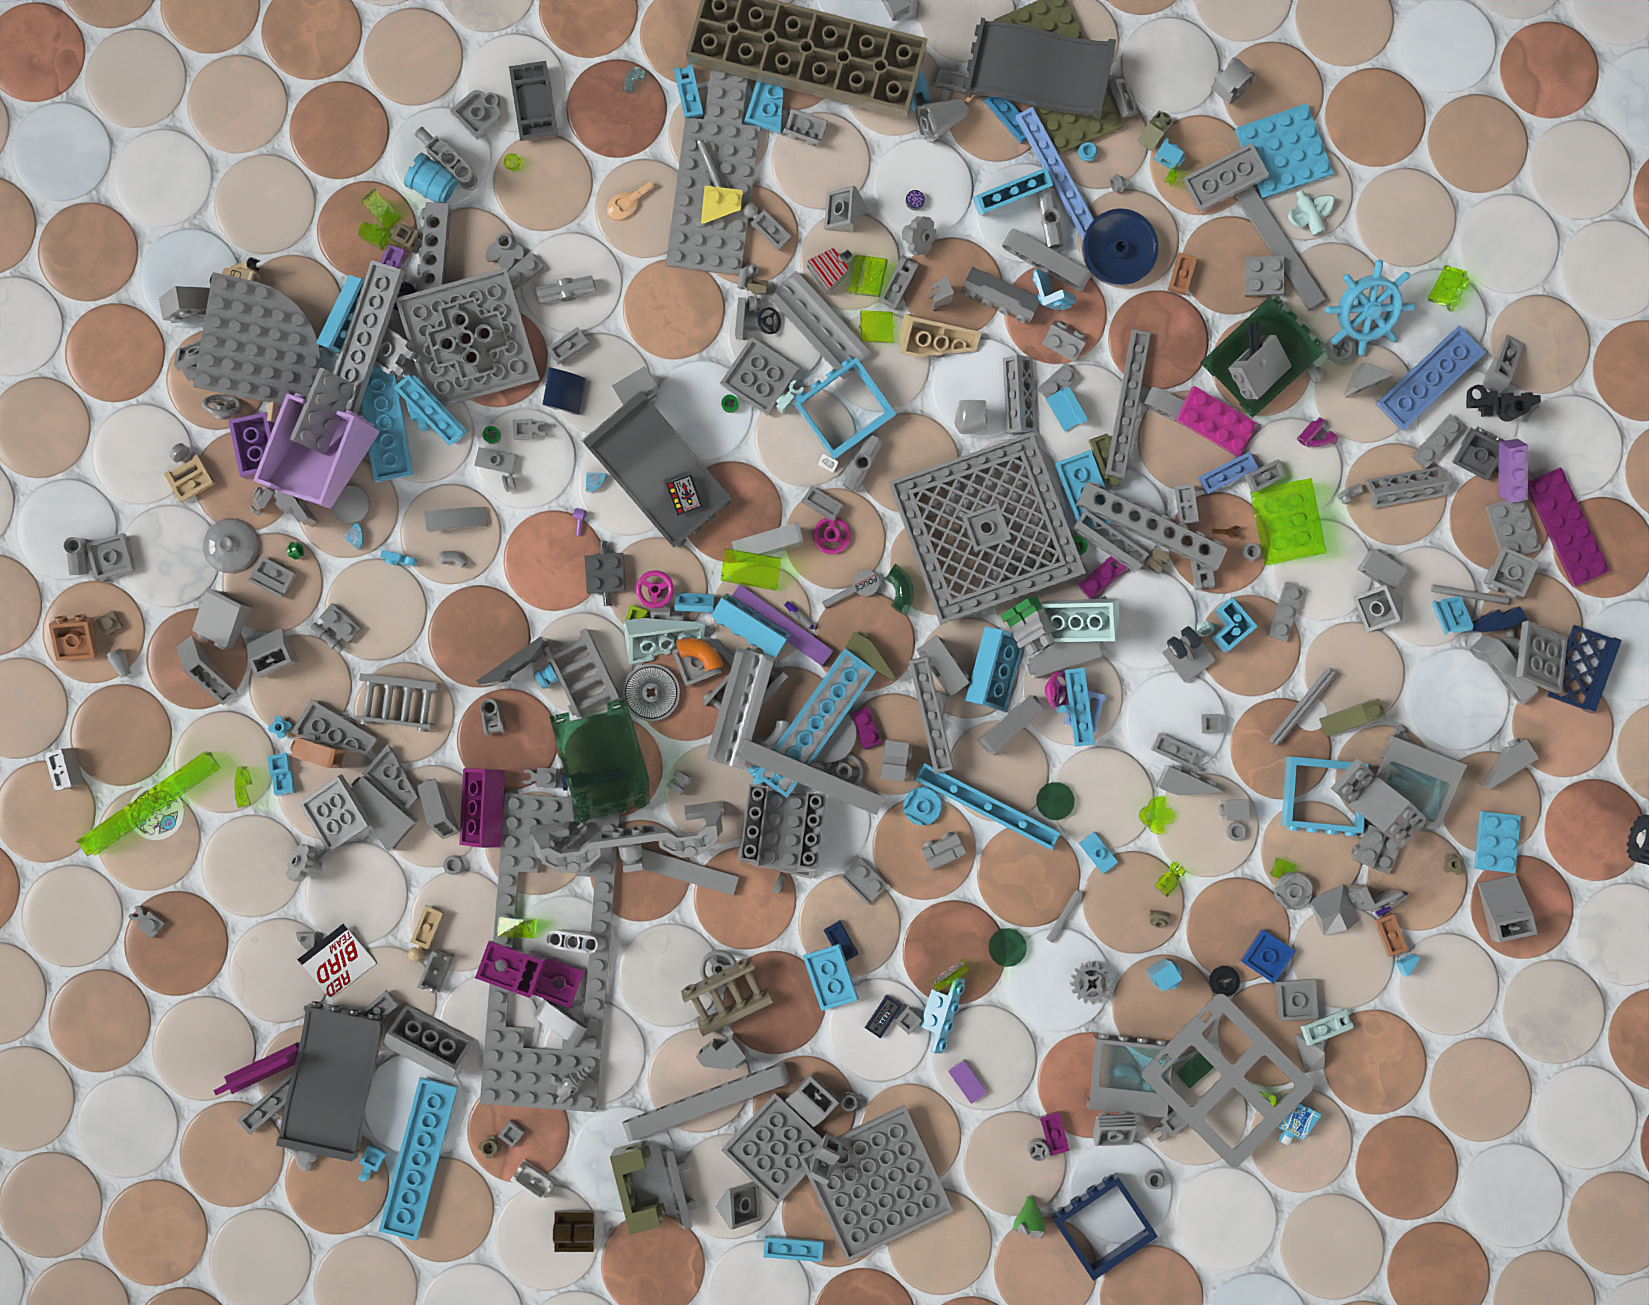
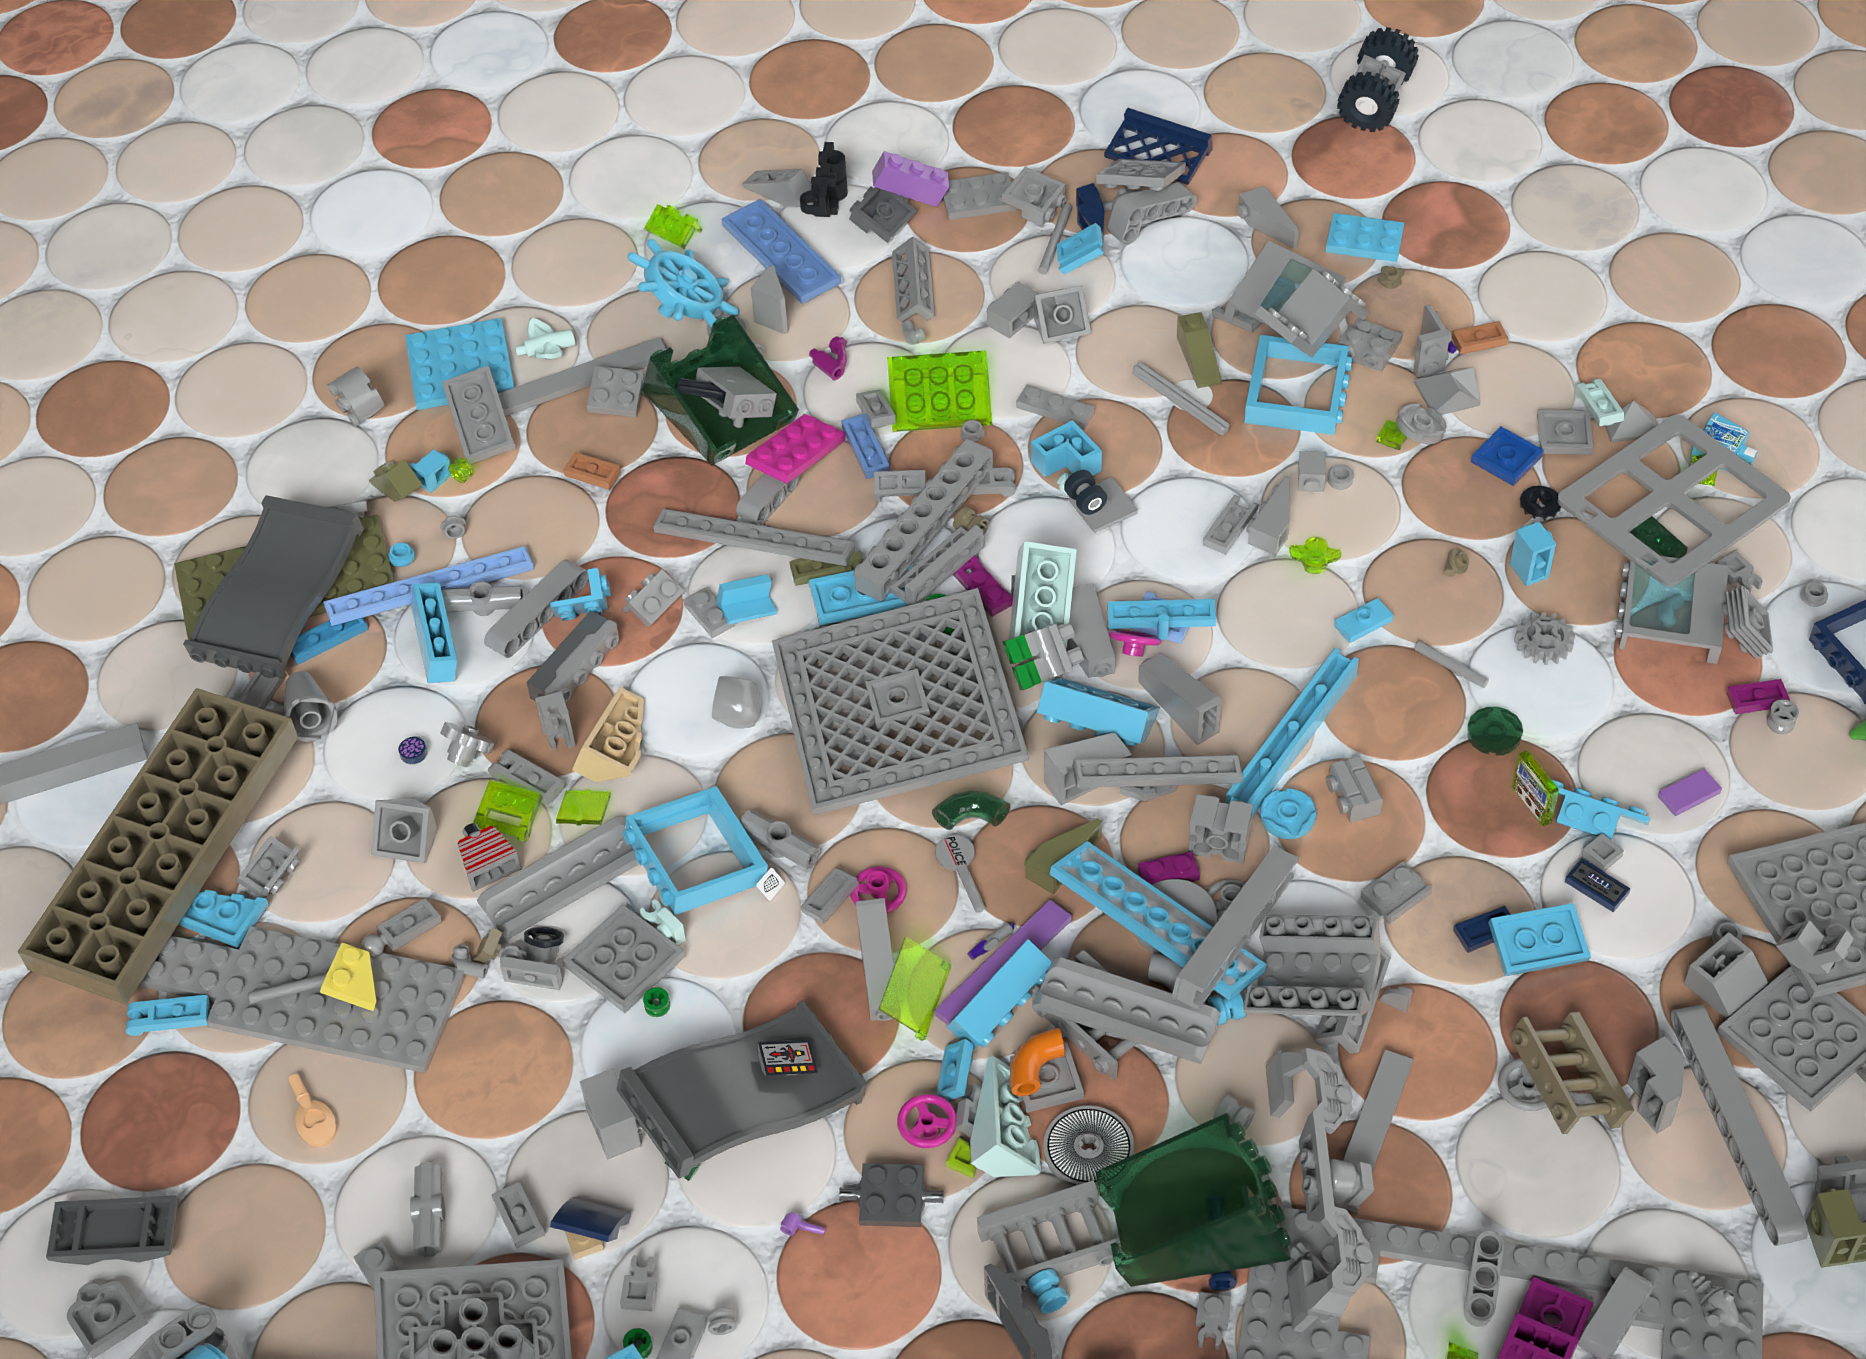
camera: 80 degrees left, 35 degrees down
(504, 254) = (346, 1299): light grey plate -> none
(508, 157) = (195, 1267): clear neon green bush -> none
(594, 481) = (741, 1198): medium azure tile -> none
(630, 77) = (120, 1091): clear light blue arm -> none
(1016, 394) = (716, 655): light grey fence -> none
(1055, 800) = (1289, 662): clear green tile -> none
(1120, 247) = (541, 525): dark blue dish -> none
(1169, 880) = (1406, 548): clear neon green plate -> none
(1211, 723) = (1195, 487): light grey plate -> none
(1226, 531) = (942, 451): reddish brown hand -> none
(1407, 964) = (1518, 324): medium azure slope -> none
(1437, 441) = (860, 253): light grey plate -> none
(1506, 909) = (1450, 230): light grey slope -> none
(1567, 527) = (989, 149): magenta plate -> none

